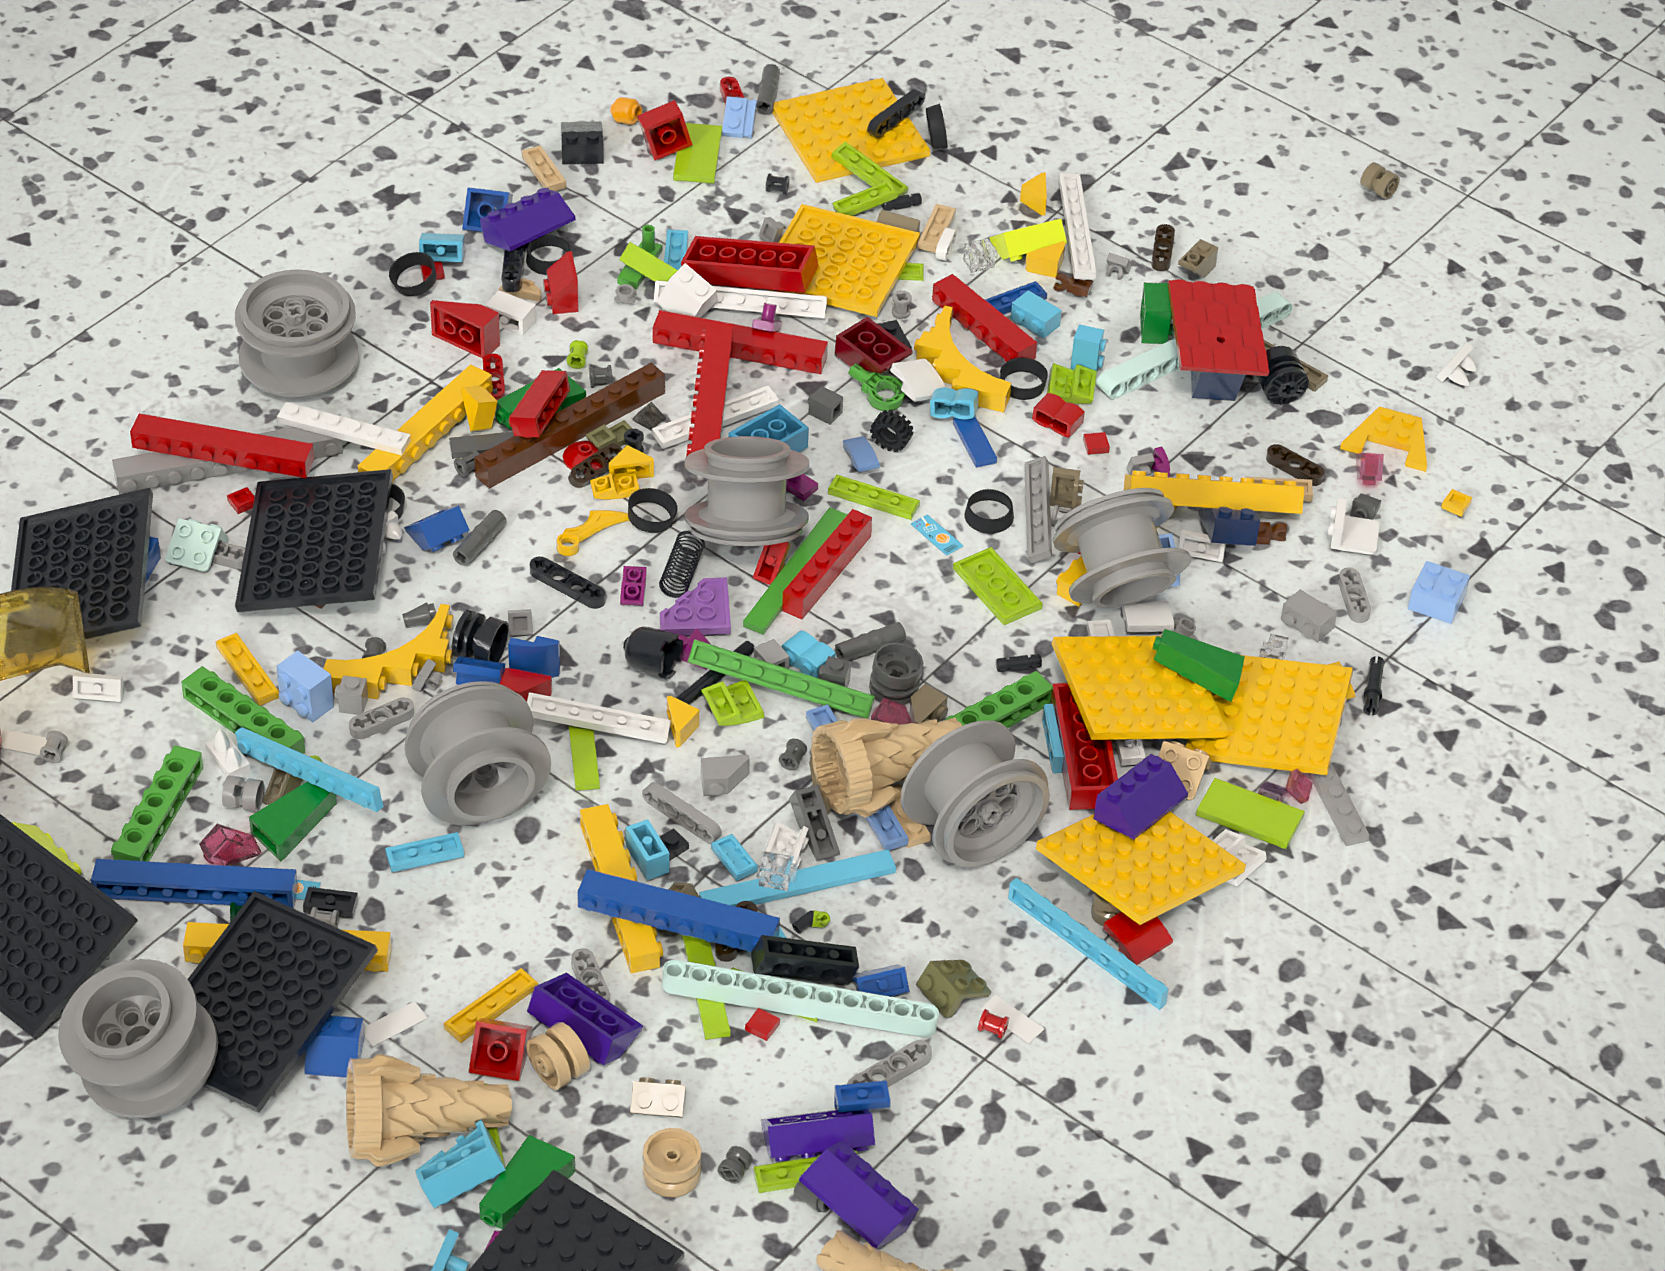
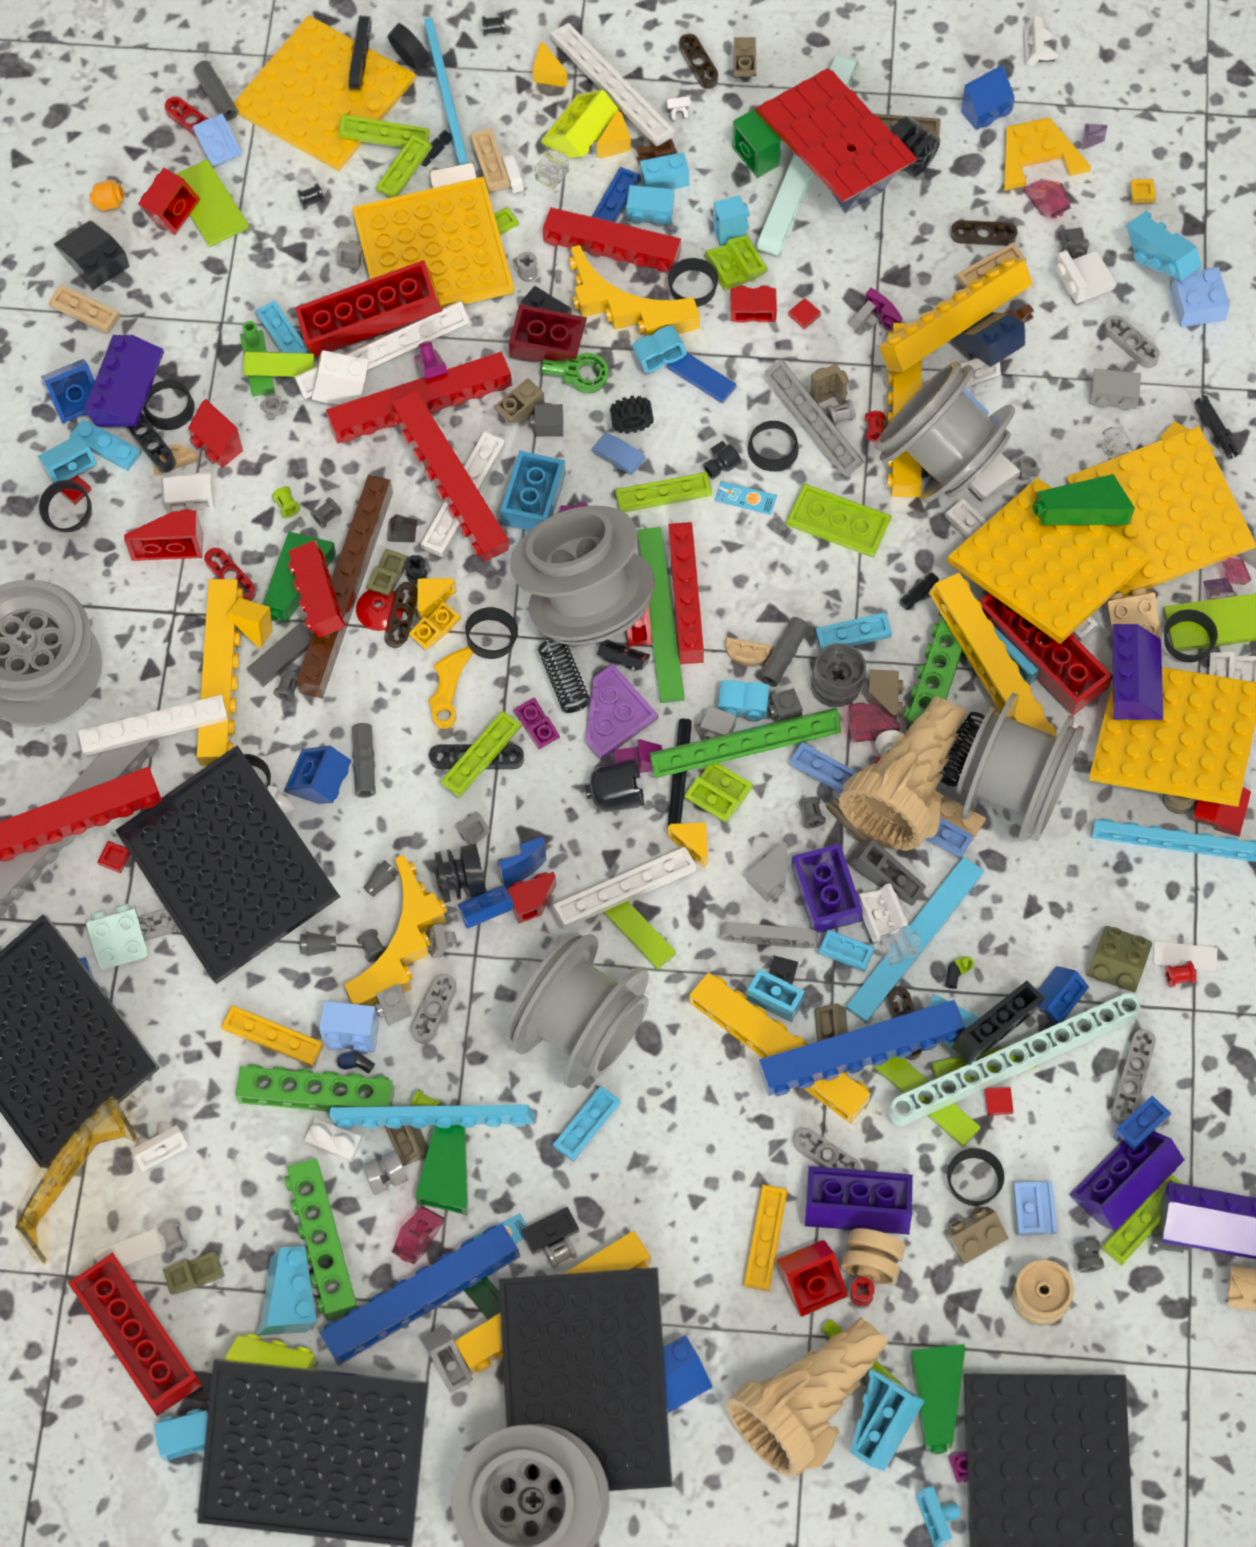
camera: 30 degrees left, 20 degrees up
(43, 778) = (194, 1273): none -> olive slope
(95, 824) = (288, 1294): none -> medium azure wedge
(172, 935) = (446, 1358): none -> light grey slope
(290, 714) = (353, 1060): none -> arm
(332, 628) = (315, 944): none -> dark grey cone
(394, 1023) = (699, 1311): white sticker -> none
(481, 257) = (107, 445): none -> medium azure plate
(530, 1080) = (861, 1284): none -> red bush
(570, 578) = (480, 754): none -> lime tile
(693, 1040) = (978, 1154): none -> black tyre
(722, 1108) = (1034, 1208): none -> light blue plate
(738, 574) = (623, 654): none -> black plate
(754, 804) = (826, 888): none -> dark purple brick
(811, 379) = (520, 402): none -> dark tan slope
(839, 628) = (747, 652): none -> tan tile
(918, 378) = (609, 341): white slope -> none
(940, 499) = (725, 460): none -> black piece
(942, 170) = (445, 91): none -> medium azure tile
(944, 660) = (855, 631): none -> medium azure plate
(1019, 149) = (493, 25): none -> black bush
(1031, 702) = (986, 651): none -> yellow brick
(1069, 298) = (665, 172): none -> medium azure brick
(1219, 787) = (1196, 617): none -> black tyre
(1377, 376) = (987, 98): none -> blue slope
(1428, 536) = (1161, 249): none -> medium azure wedge
(1447, 446) = (1093, 135): none -> clear purple slope

